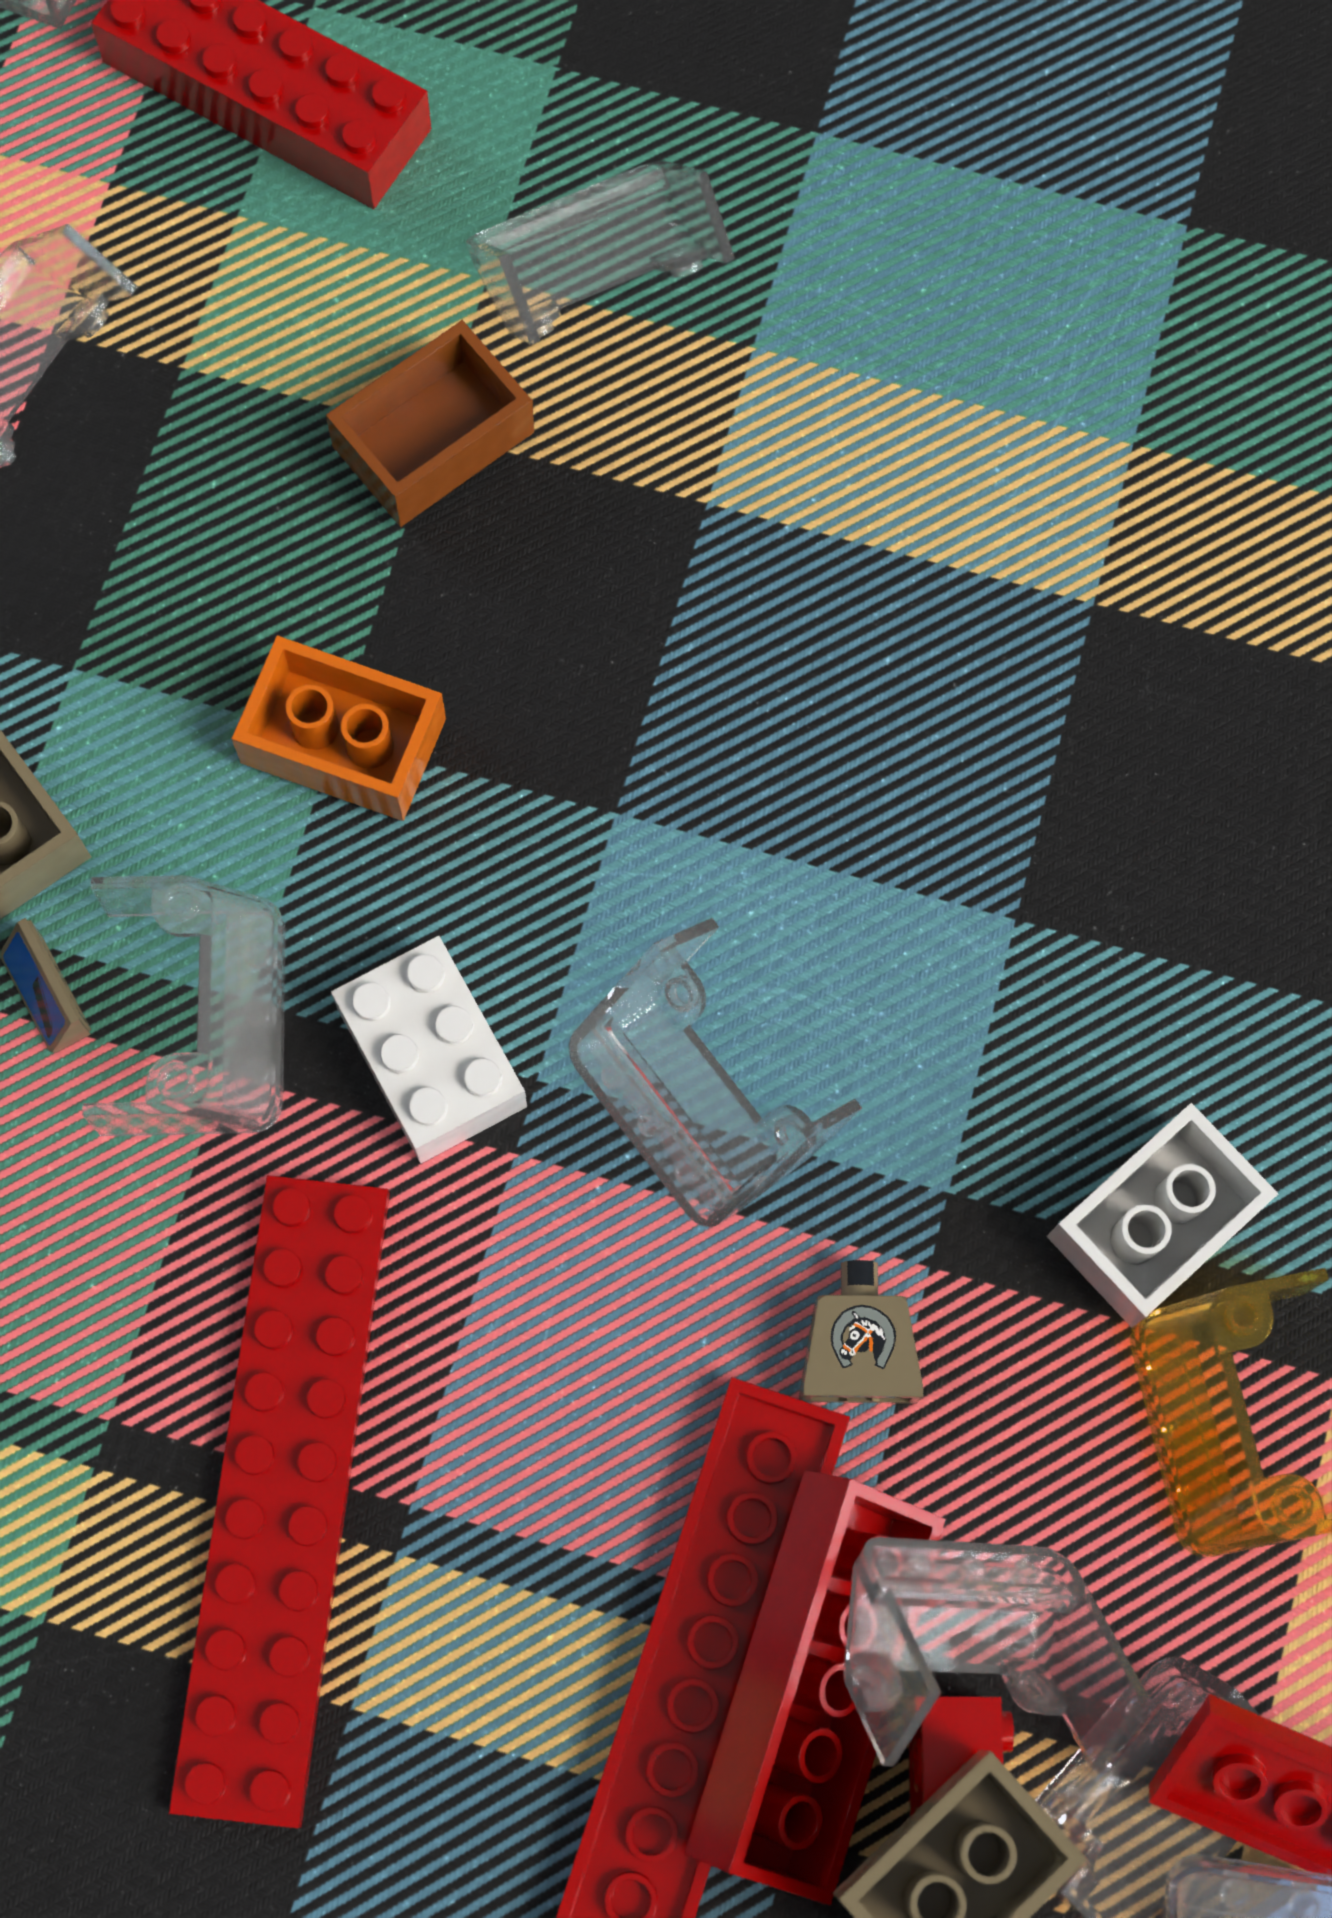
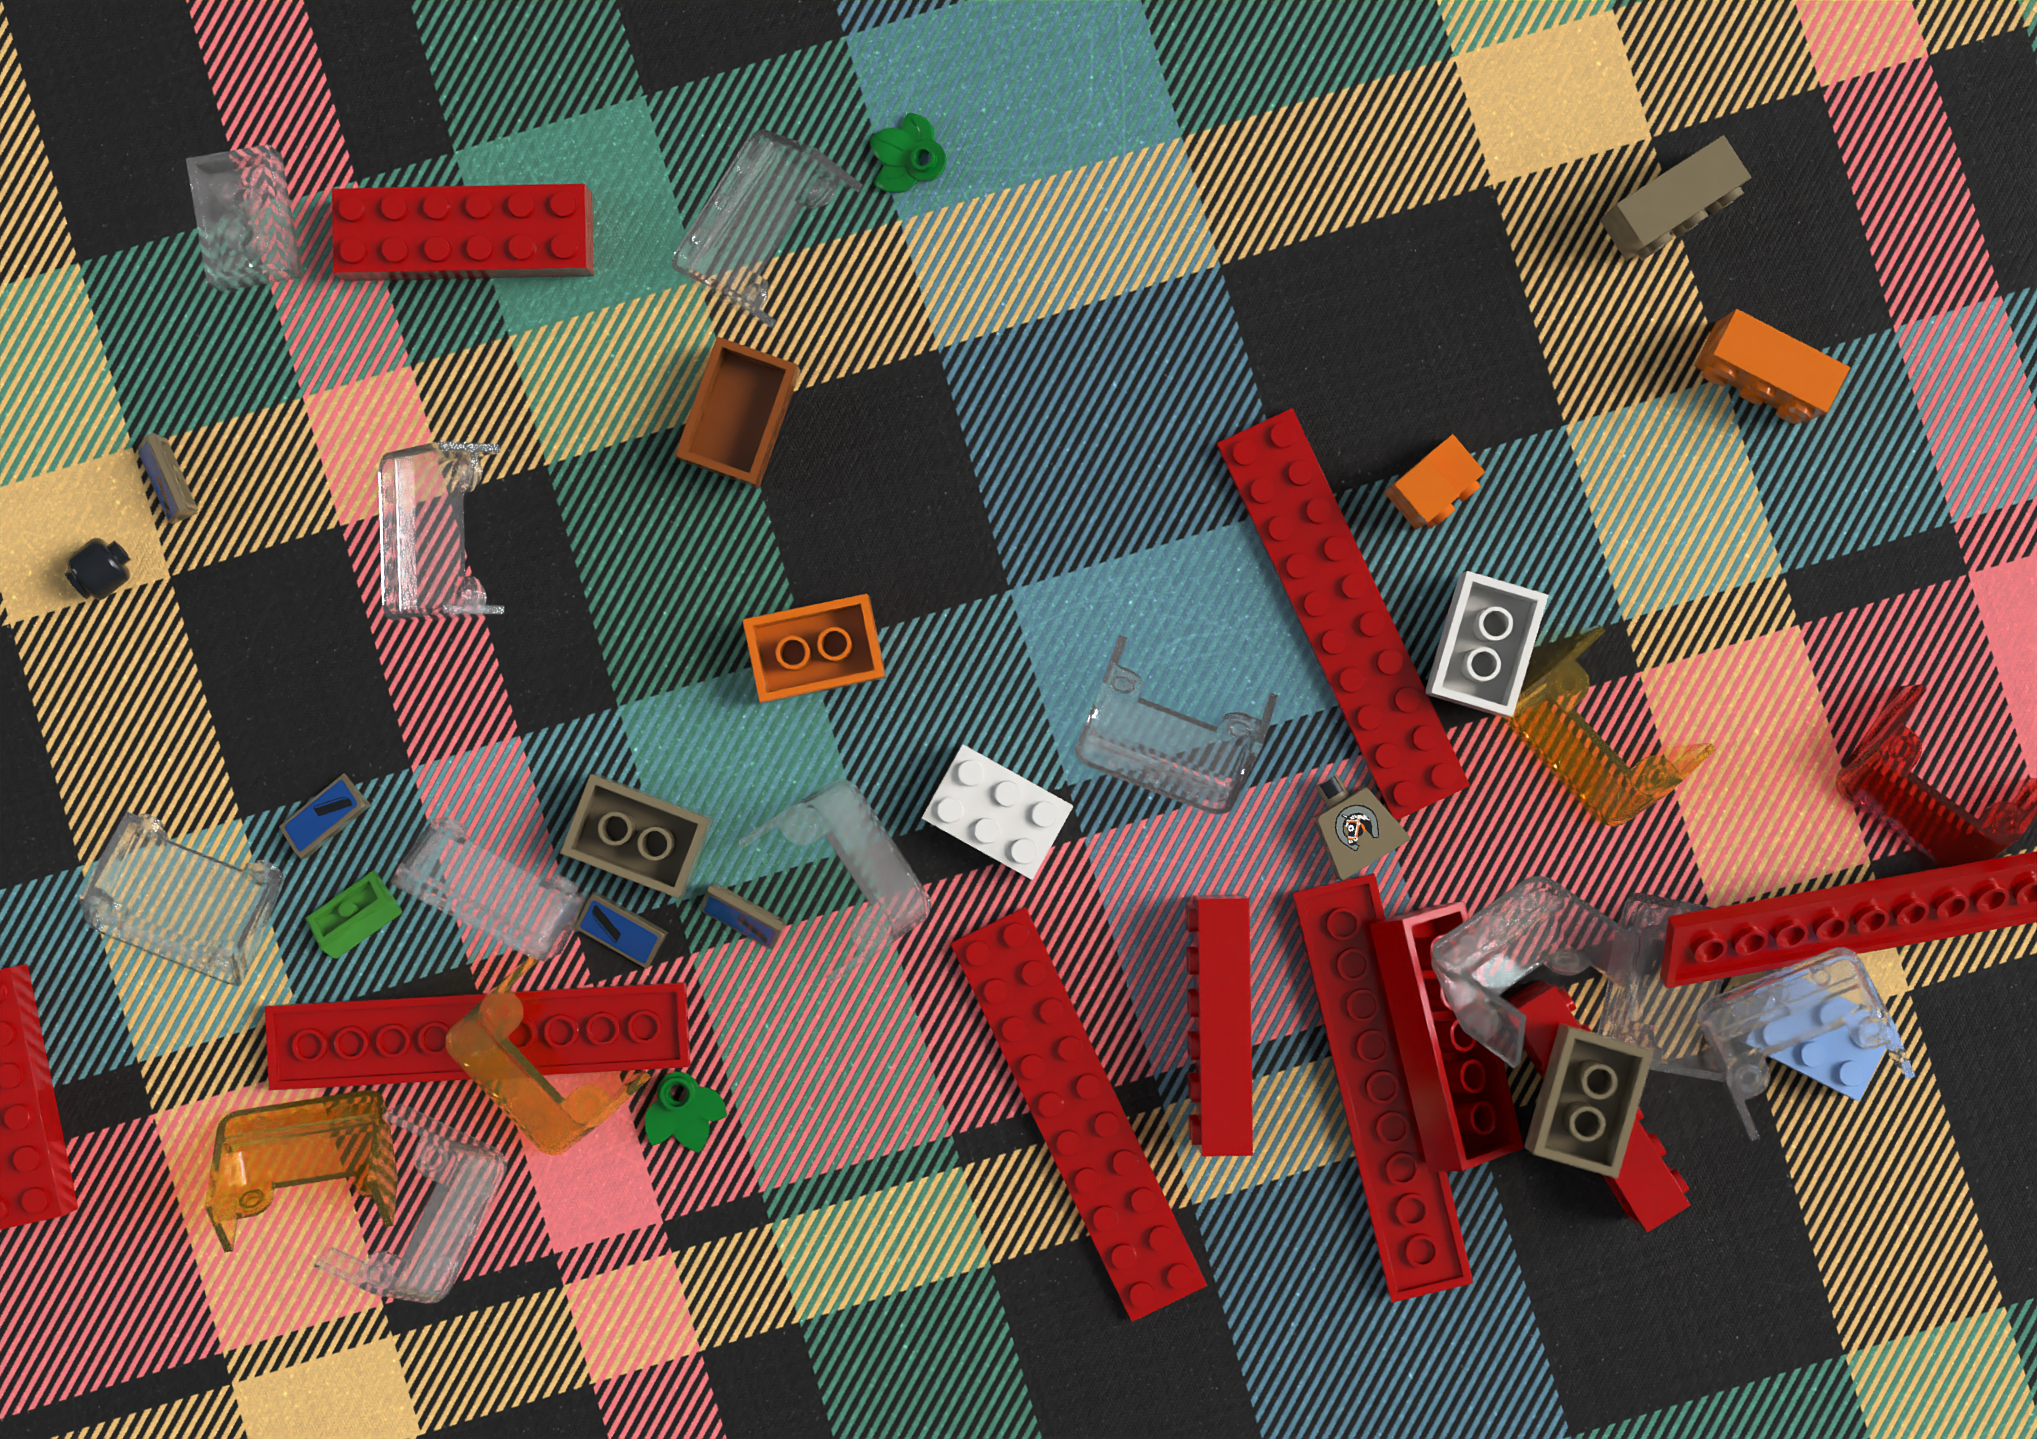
camera: 30 degrees left, 15 degrees up
(534, 1482) = (1222, 1025): none -> red brick
(807, 282) = (901, 154): none -> green plate
(1000, 1090) = (1342, 614): none -> red plate
(1205, 984) = (1434, 483): none -> orange brick

